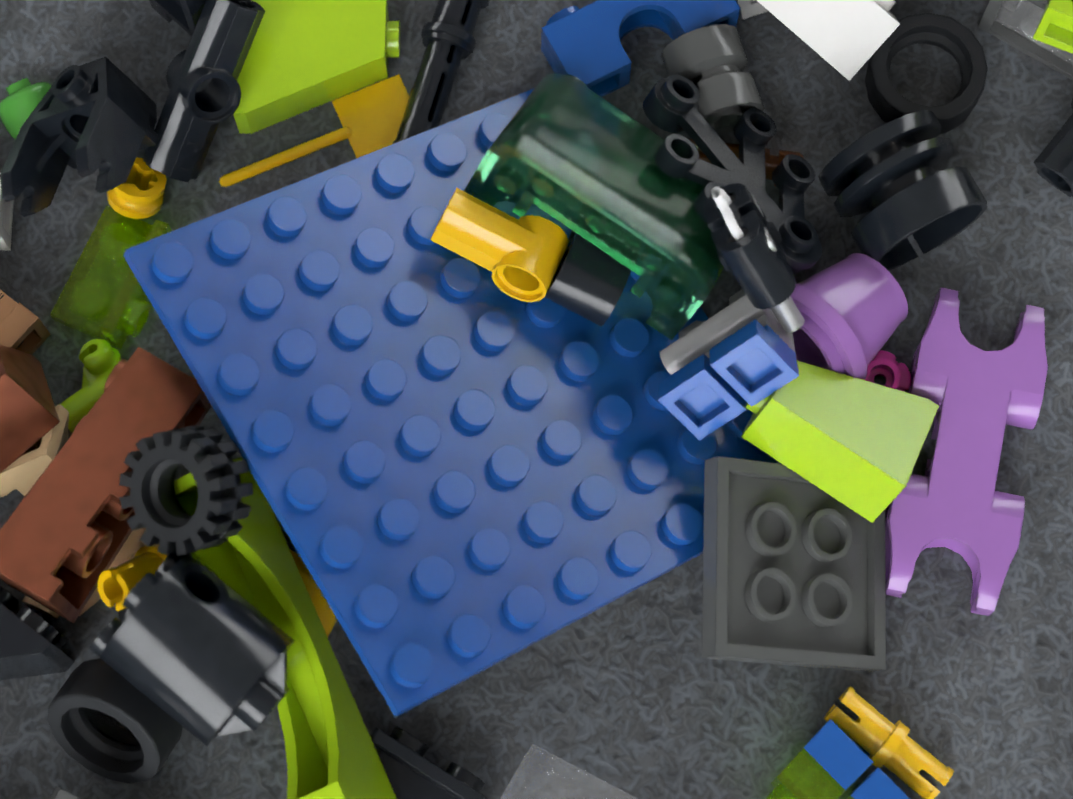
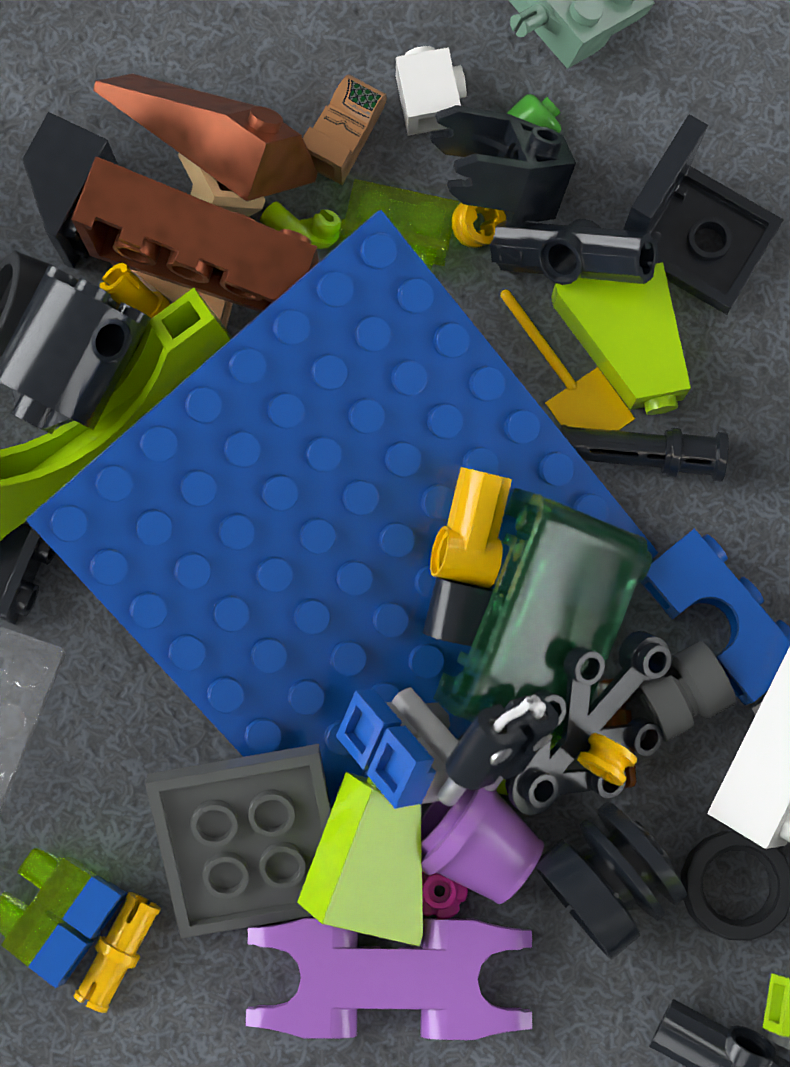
camera: 80 degrees right, 5 degrees up
(155, 498) = (182, 333): black tyre -> none
(778, 159) = (607, 759): none -> yellow bush

